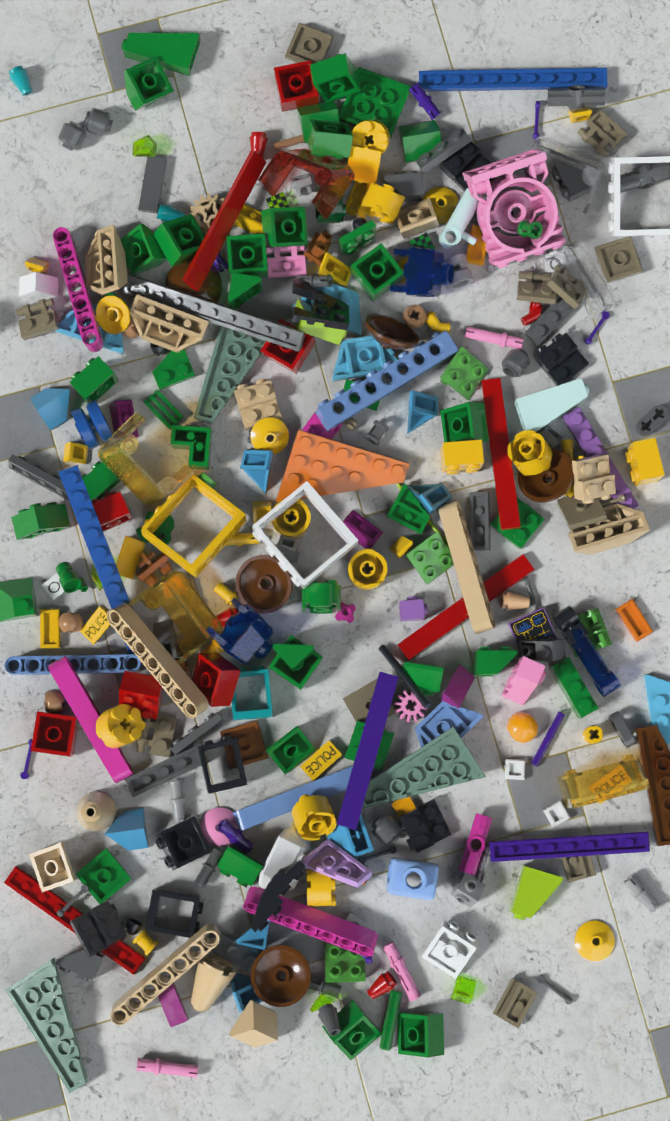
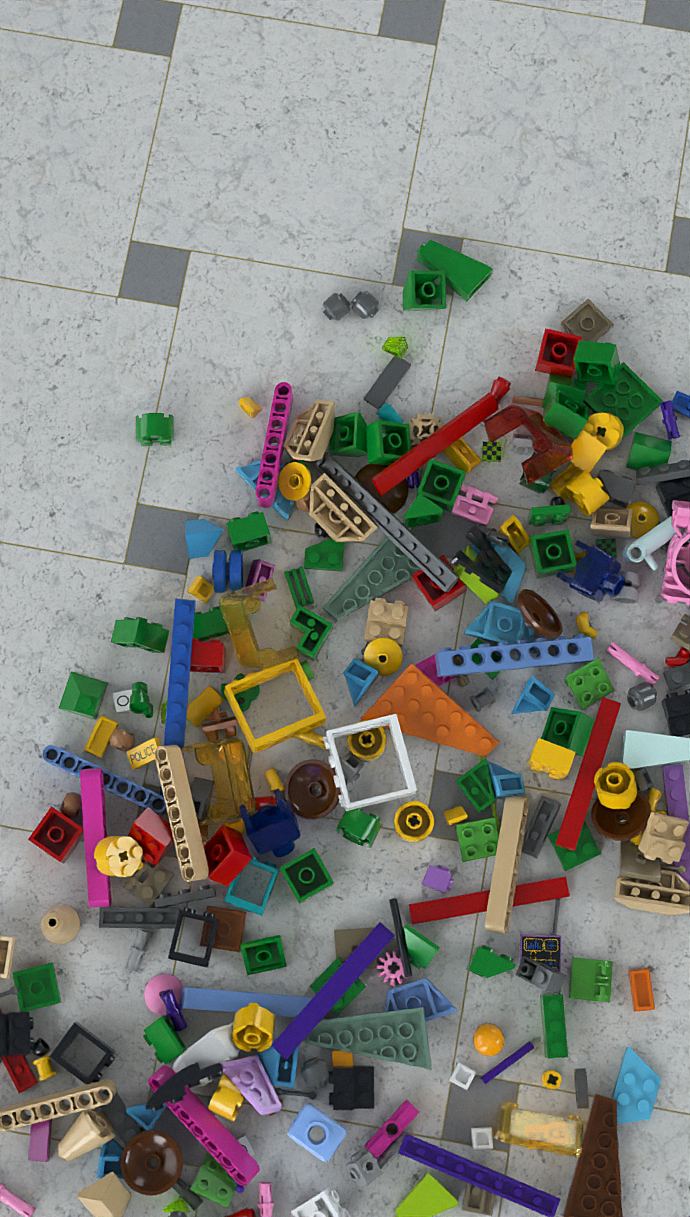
camera: 30 degrees right, 5 degrees down
(20, 79) = (315, 236): teal cone -> none
(24, 775) = (13, 858): dark purple hinge -> none
(37, 475) = (157, 592): dark grey plate -> none
(38, 285) = (242, 425): white slope -> none
(38, 324) = (226, 459): dark tan plate -> none
(129, 830) = (81, 956): dark azure slope -> none
(182, 843) = (122, 993): black plate -> none
(208, 867) = (135, 1027): dark grey axle -> none
(260, 509) = (342, 719): yellow slope -> none
(285, 226) = (488, 474): green slope -> none
(293, 654) = (307, 867): green slope -> none
(318, 247) = (509, 506): dark orange hips -> none
(320, 760) = (286, 978): yellow tile -> none
(346, 617) = (375, 856): dark pink plate -> none
(362, 529) = (426, 782): magenta slope -> none
(416, 309) = (573, 605): medium nougat piece -> none
(458, 687) = (446, 972): magenta slope -> none
(477, 252) = (653, 578): light orange tile -> none
(513, 601) = (534, 916): light nougat cone -> none
(523, 680) = (509, 996): bright pink wedge -> none
(576, 635) = (579, 978): clear blue piece -> none

